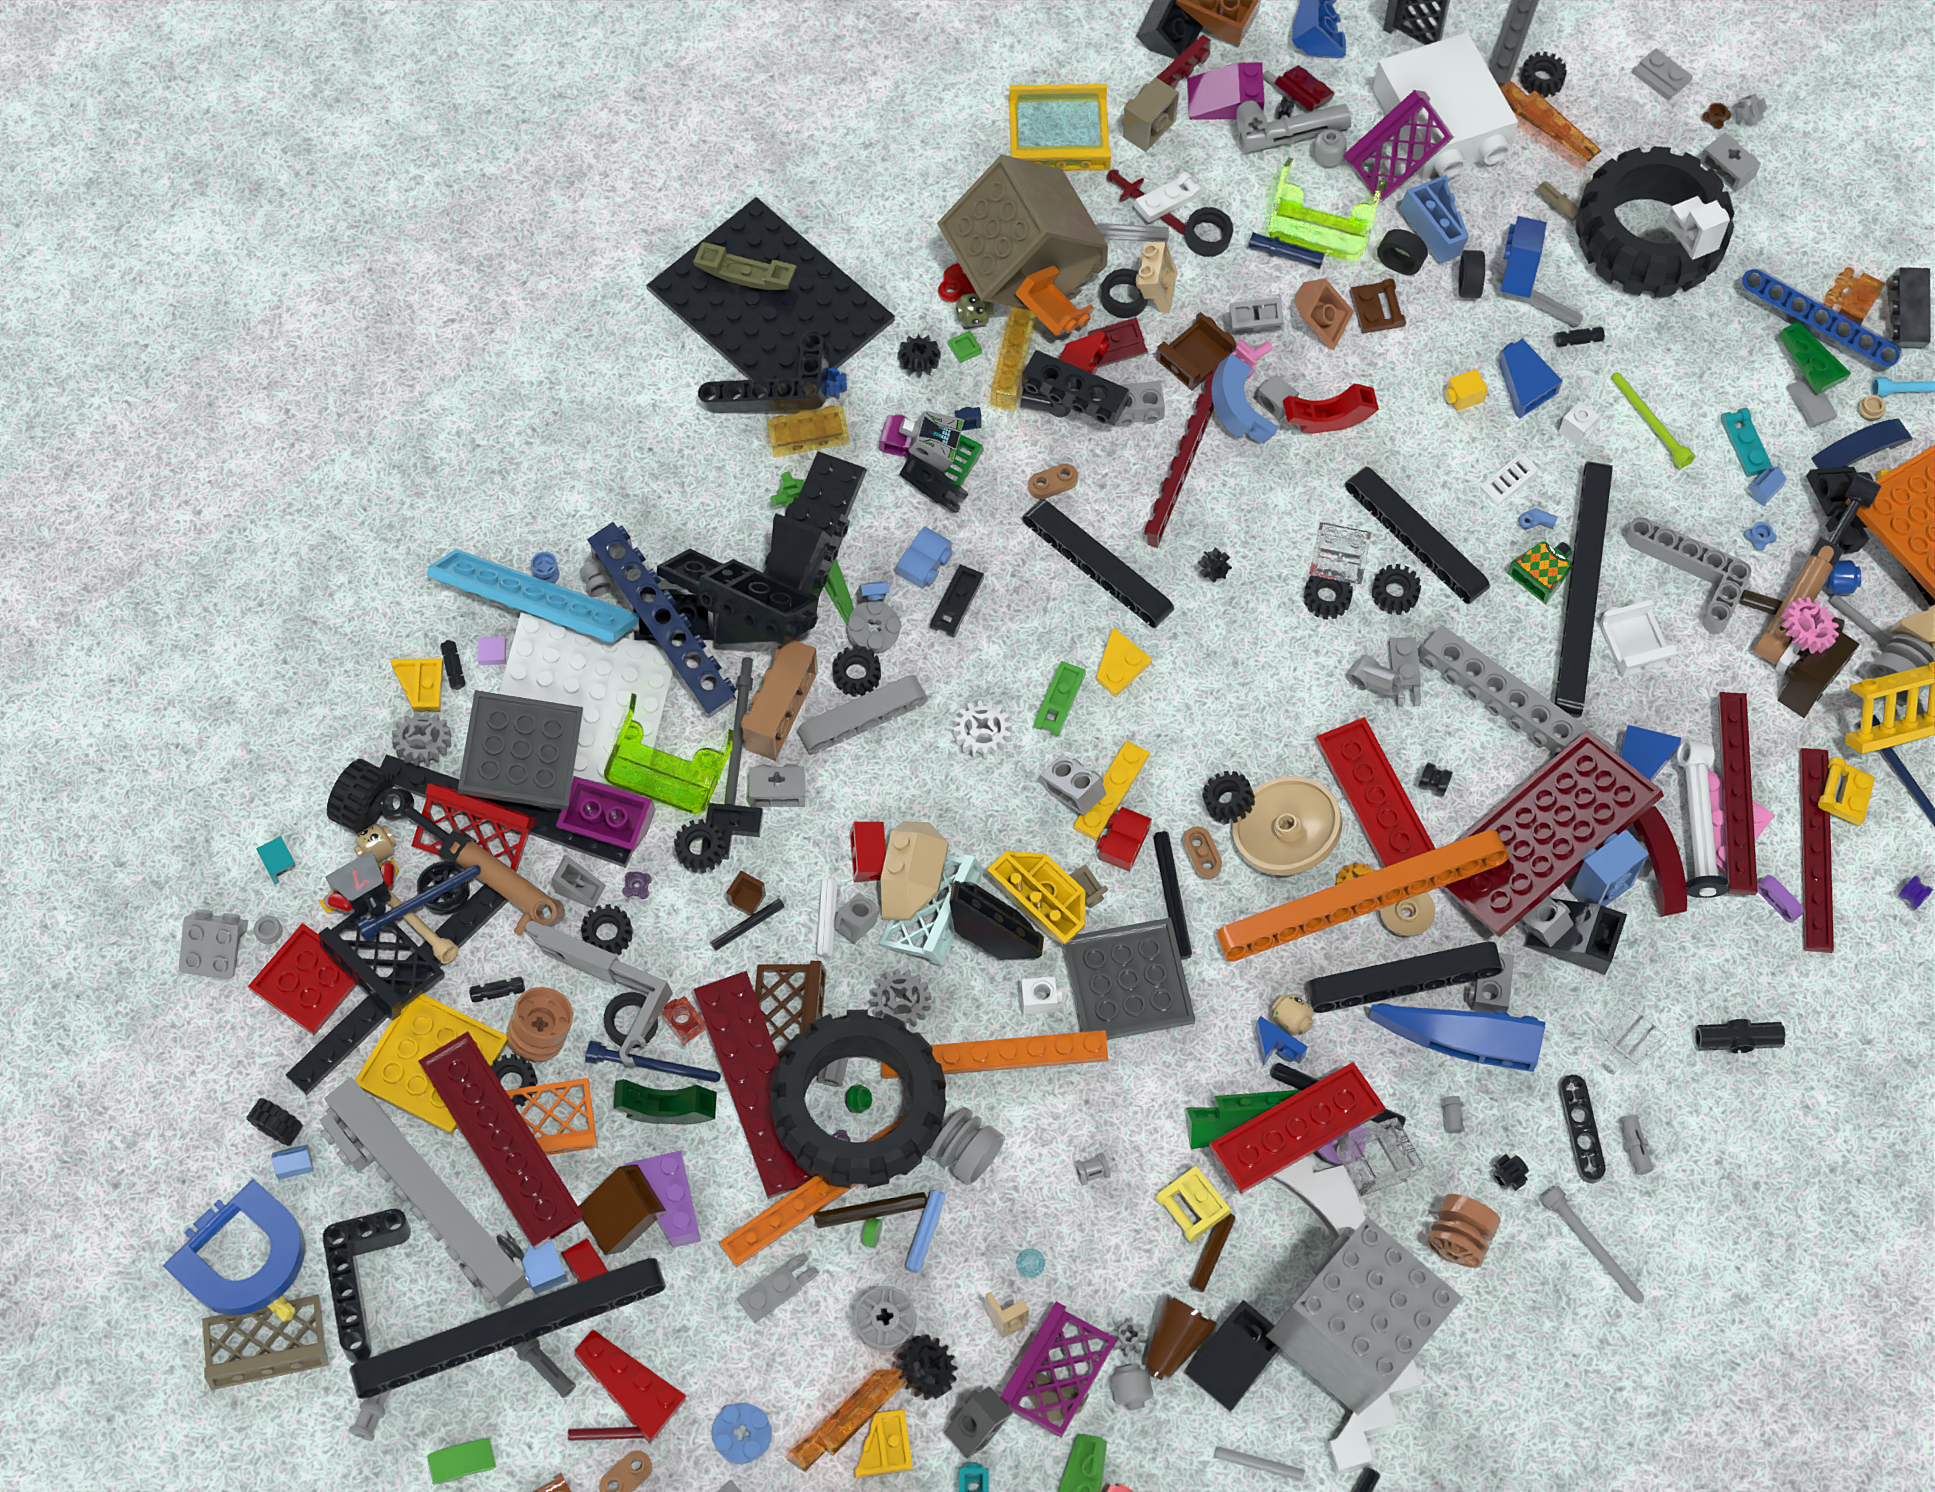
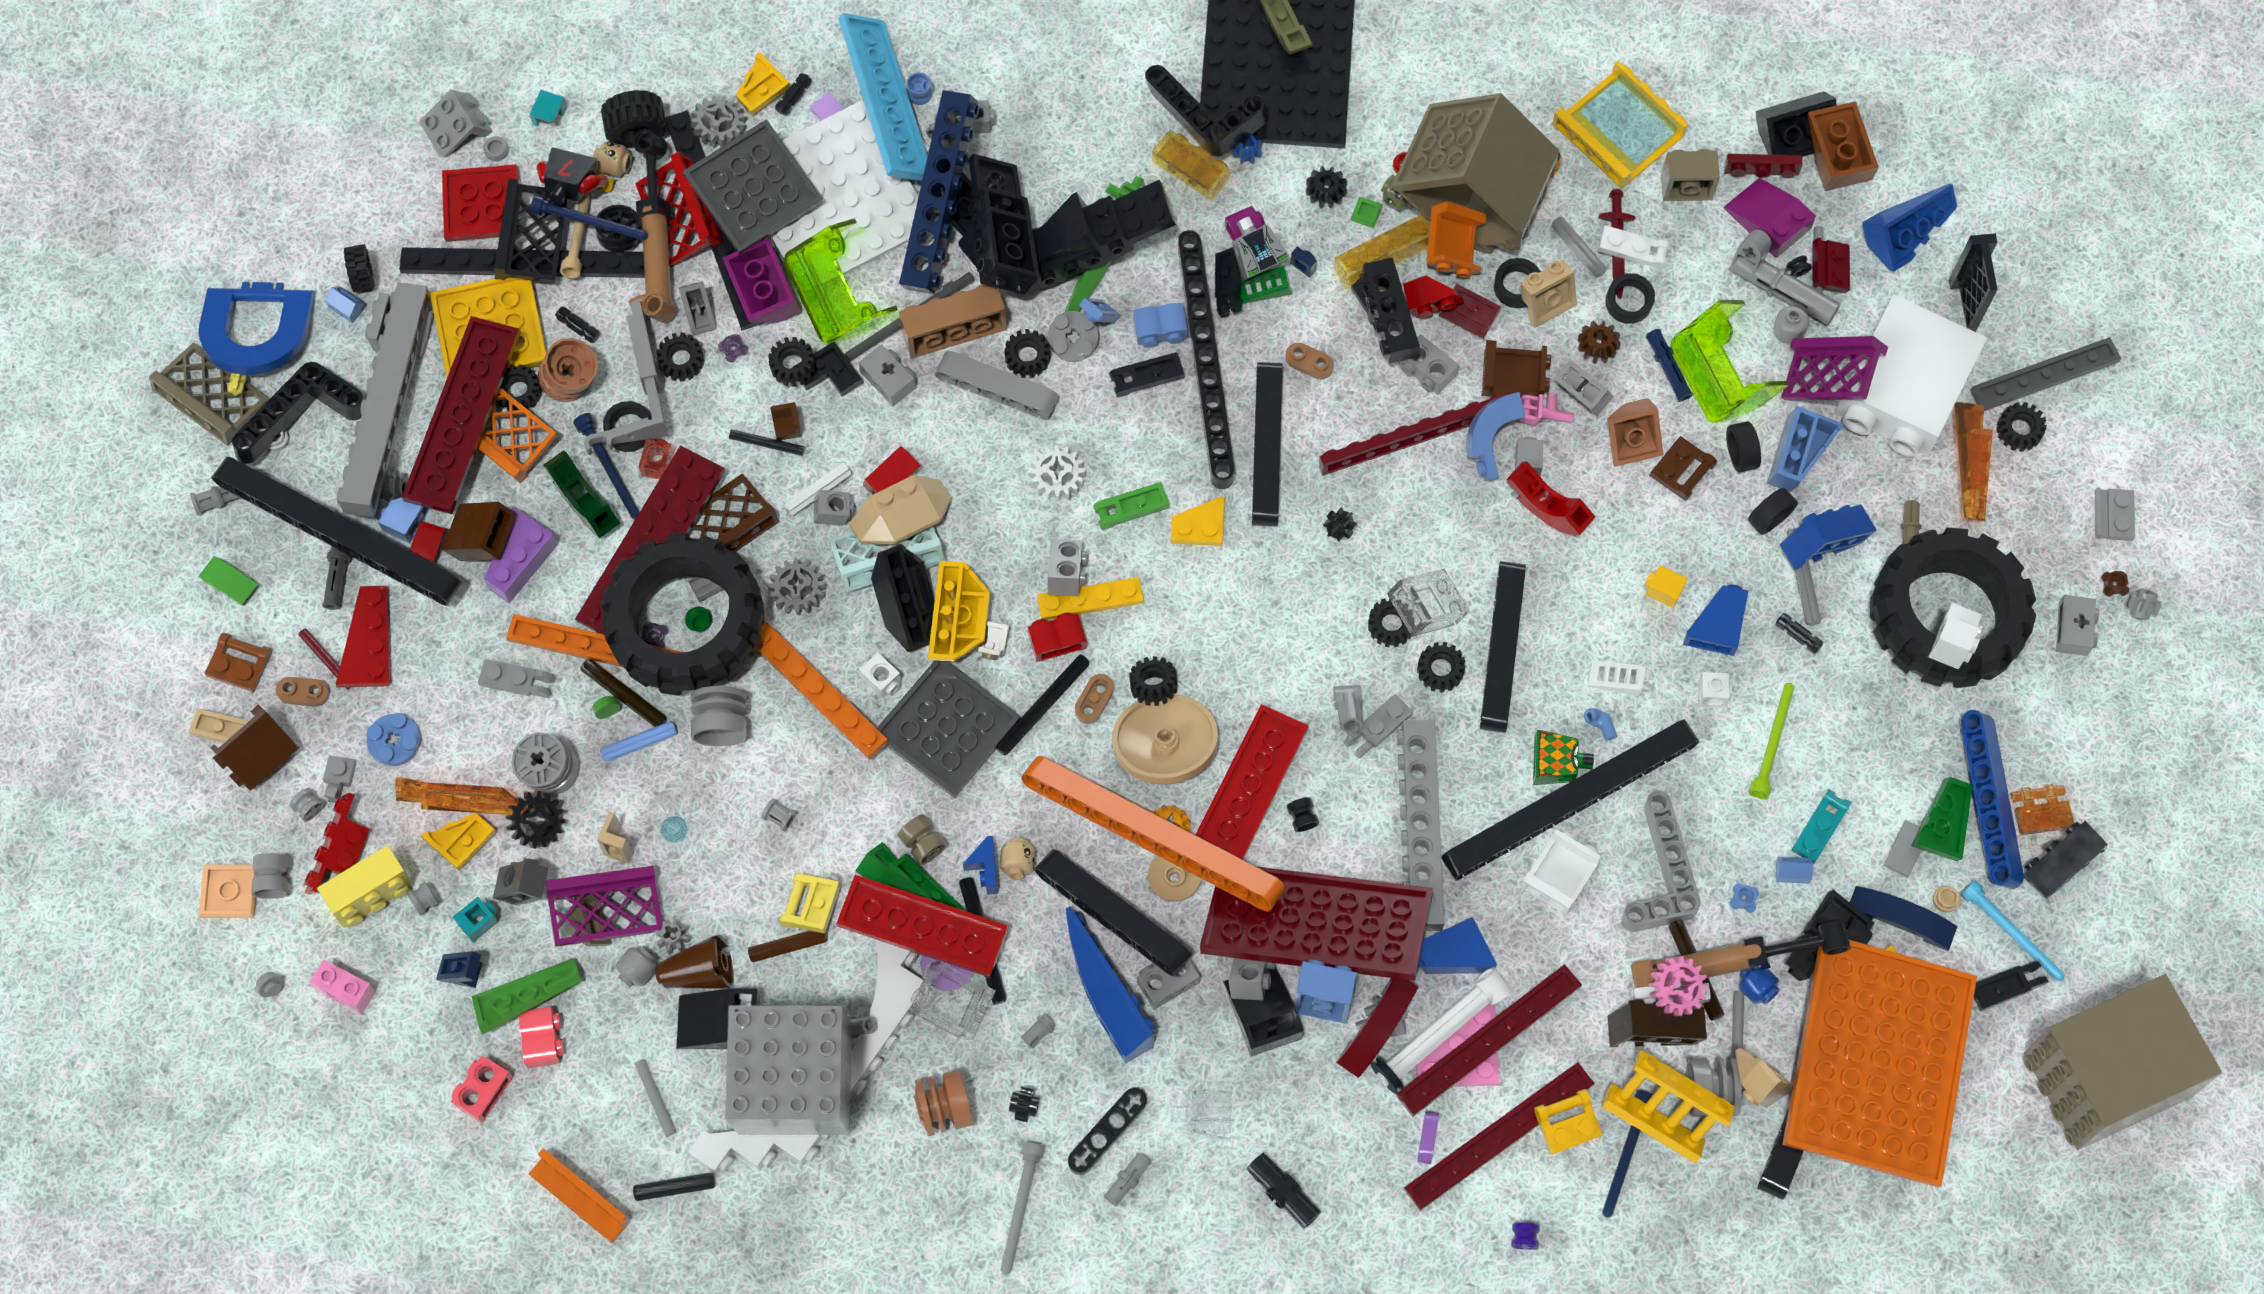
camera: 50 degrees right, 5 degrees up
(990, 559) = (1205, 369): none -> black beam
(1214, 1073) = (920, 837): none -> dark tan wheel
(1225, 278) = (1603, 350): none -> reddish brown gear

